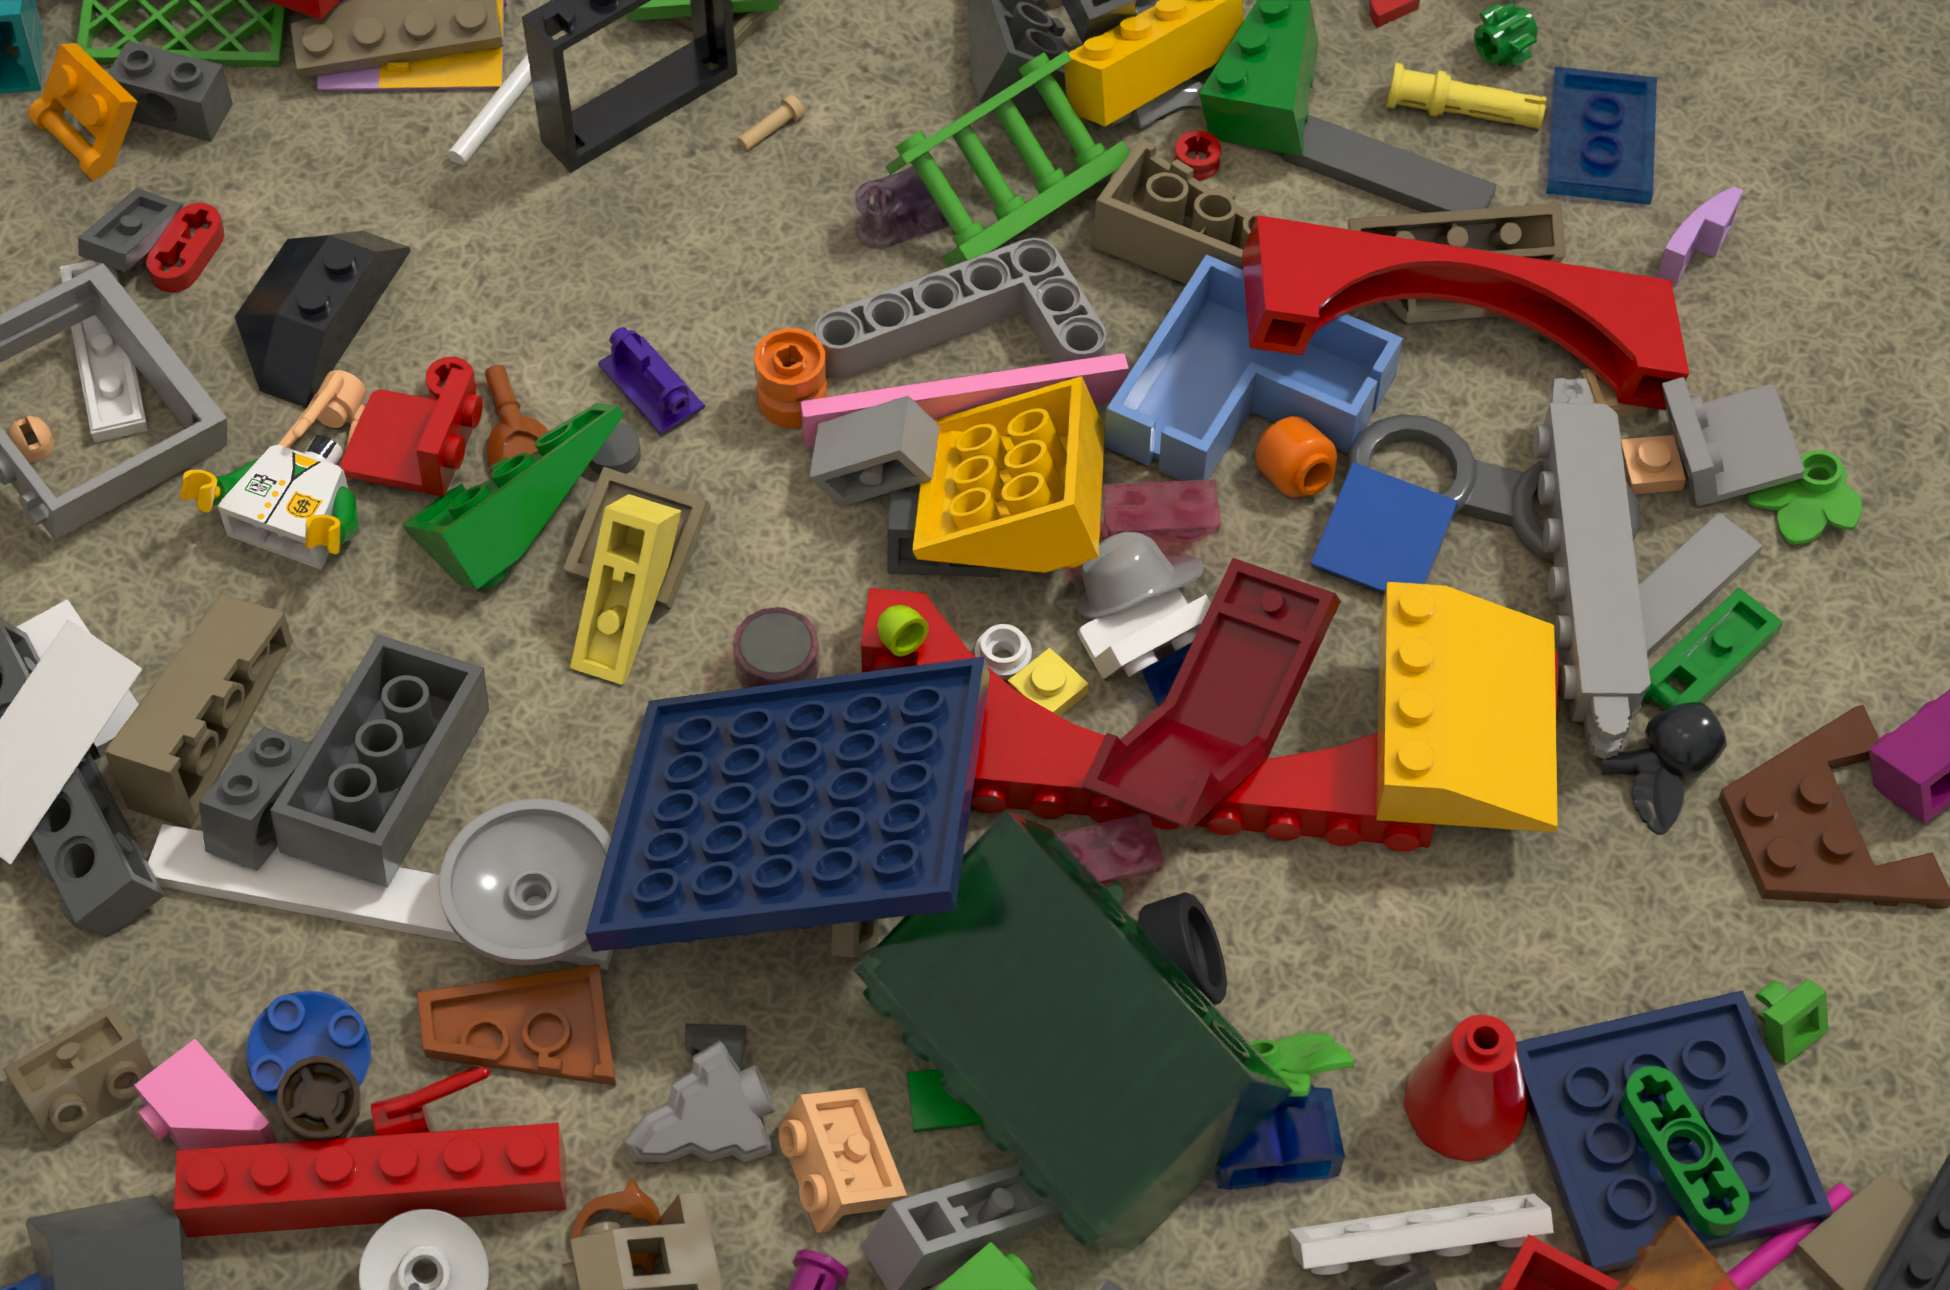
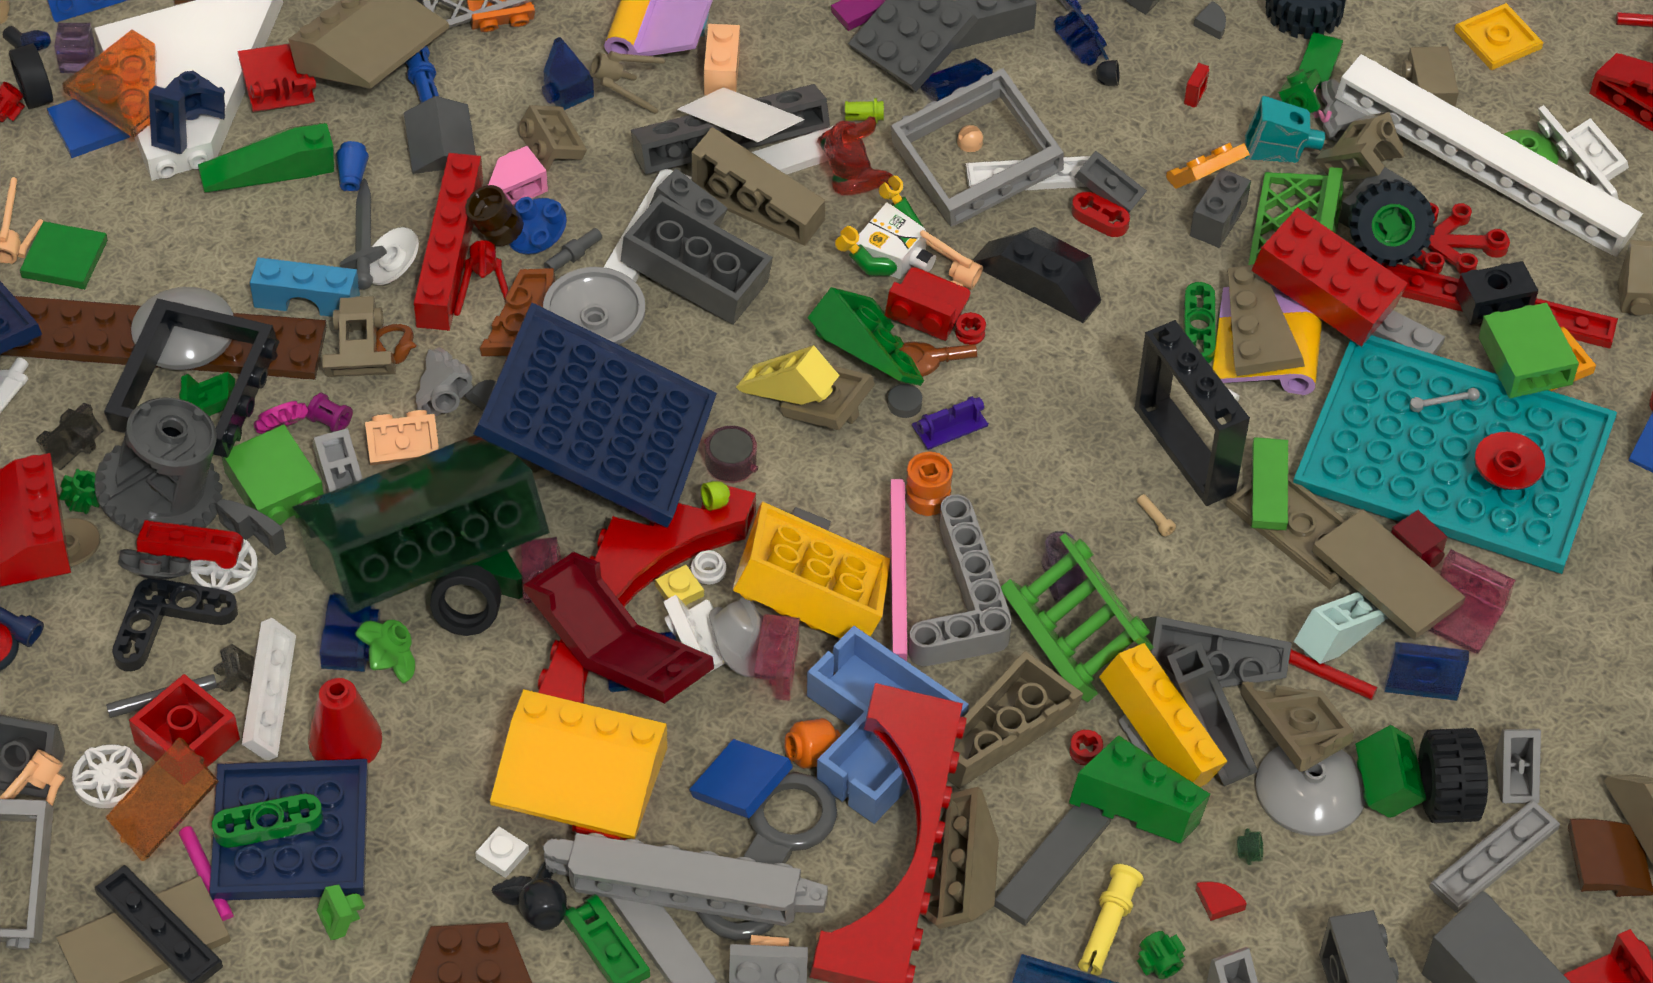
camera: 100 degrees right, 5 degrees down
(97, 592) = (849, 159): none -> clear red hair
(356, 982) = (573, 249): none -> dark grey bar
(382, 94) = (1204, 313): none -> green beam
(874, 451) = (858, 511): light grey brick -> none
(1599, 828) = (502, 852): none -> white plate

